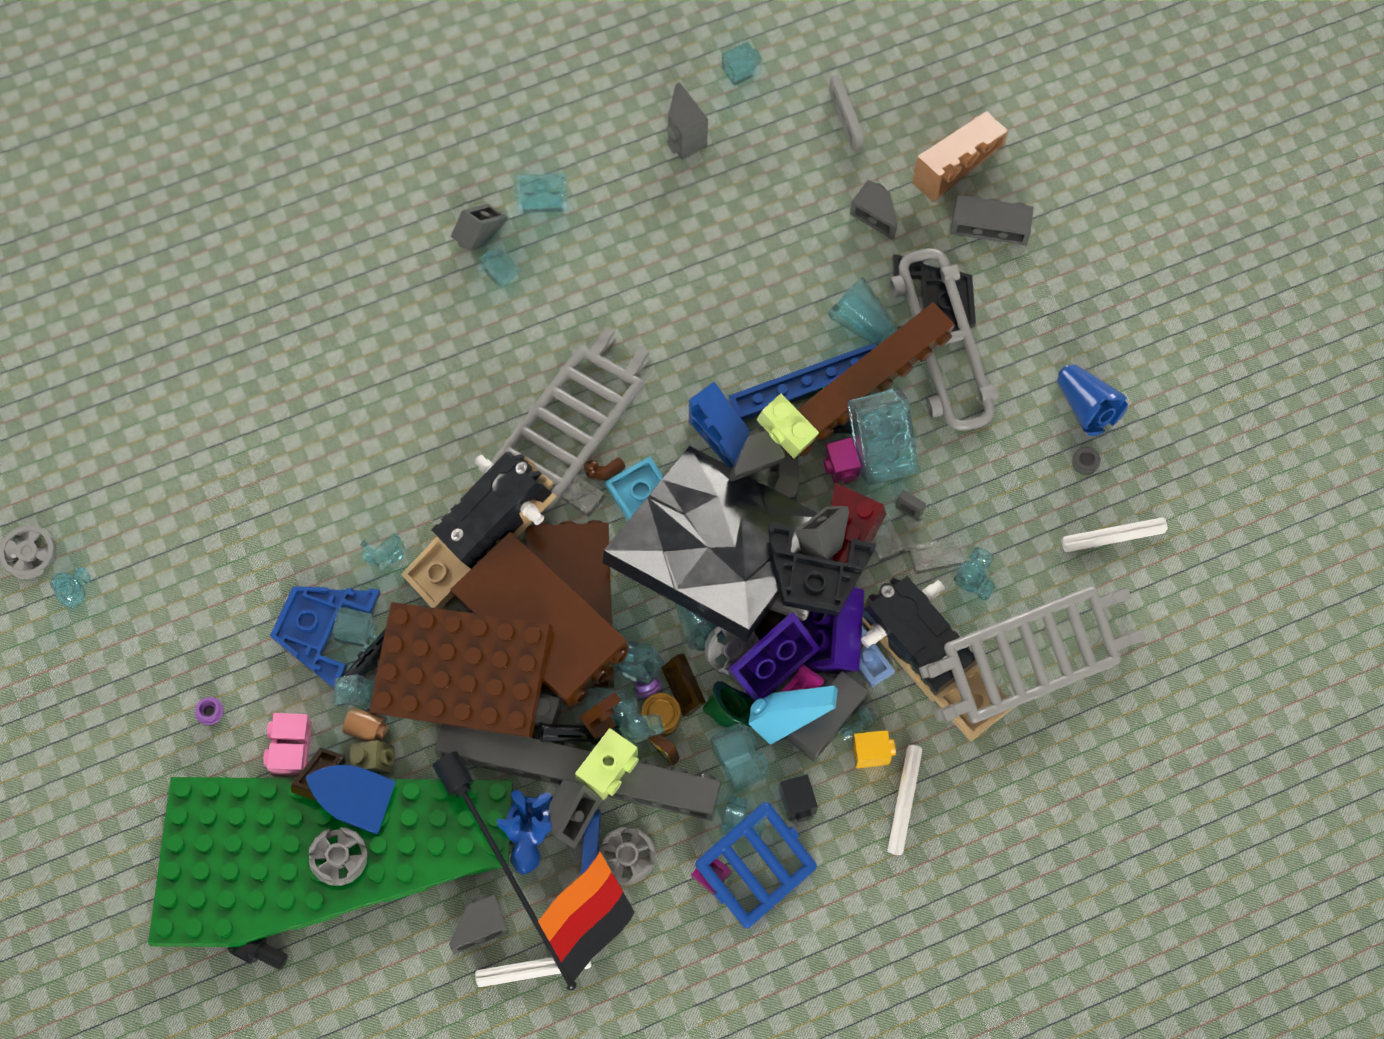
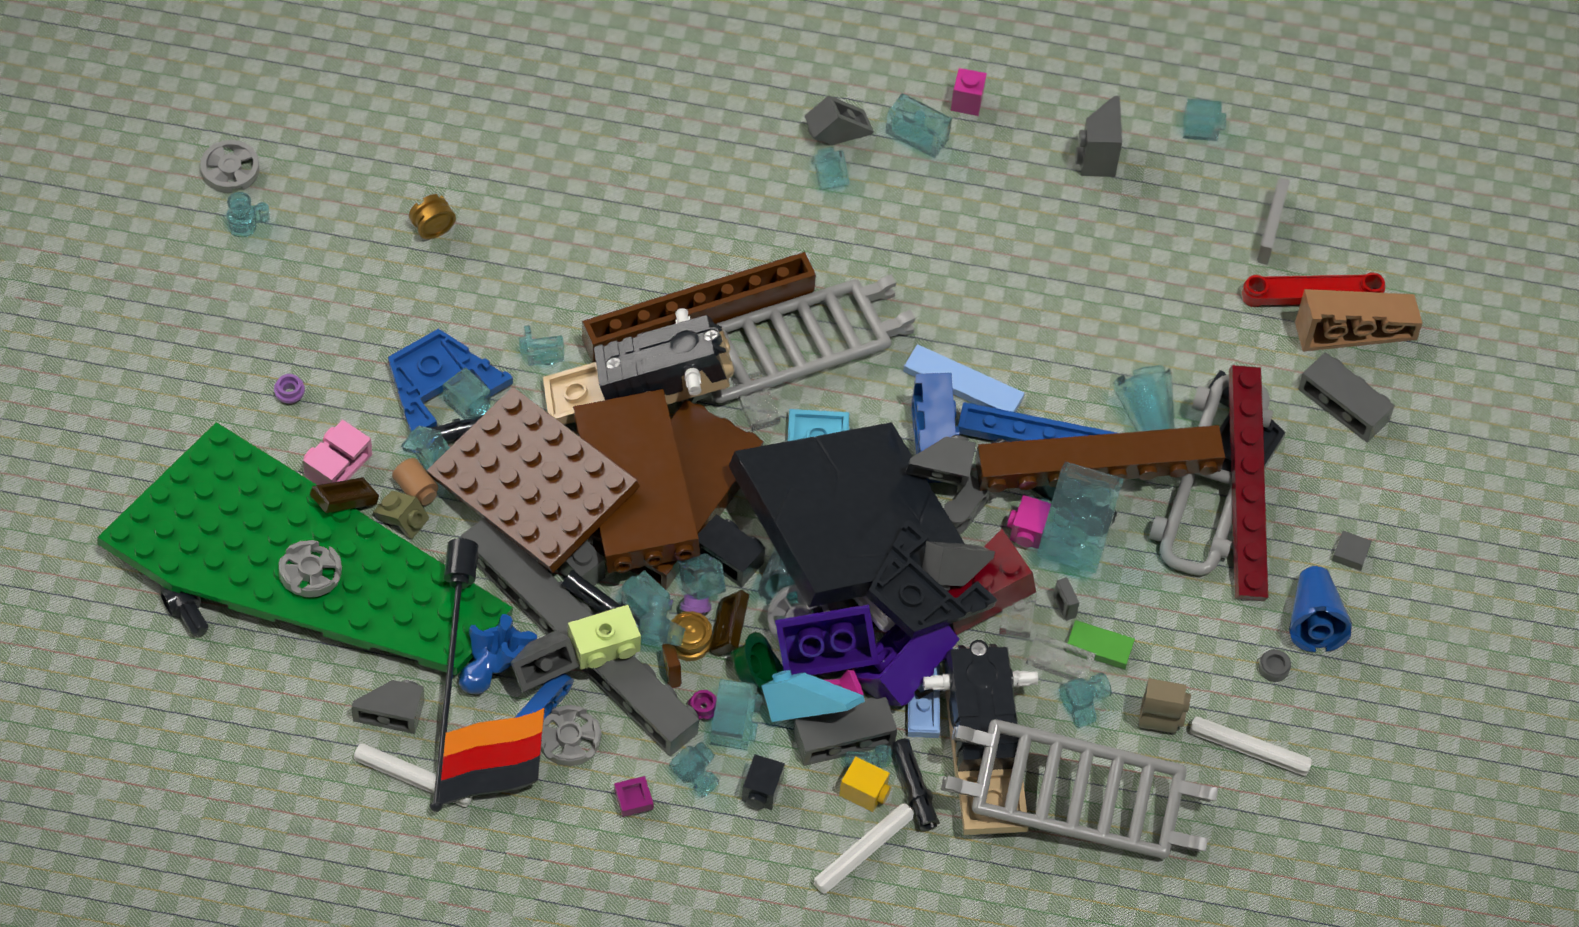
camera: 30 degrees right, 10 degrees down
(222, 496) = (432, 217): none -> pearl gold wheel
(352, 794) = (360, 525): blue shield -> none
(484, 439) = (718, 299): none -> reddish brown brick
(558, 143) = (968, 91): none -> dark pink brick
(599, 718) = (629, 590): reddish brown bracket -> none
(606, 472) = (795, 401): reddish brown arm -> none
(643, 624) = (737, 551): none -> black brick
(710, 756) = (703, 697): none -> magenta plate
(724, 847) = (668, 852): blue bar -> none
(726, 376) = (965, 381): none -> light blue tile
(787, 426) = (987, 445): yellowish green brick -> none
(875, 208) = (1235, 320): dark grey slope -> none
(910, 148) = (1290, 289): none -> red piece
(915, 731) = (918, 795): none -> black pin
(955, 523) = (1107, 645): none -> bright green tile
(976, 331) = (1248, 483): none -> dark red plate
(1040, 546) = (1164, 706): none -> dark tan brick
(1076, 336) = (1351, 550): none -> dark grey tile

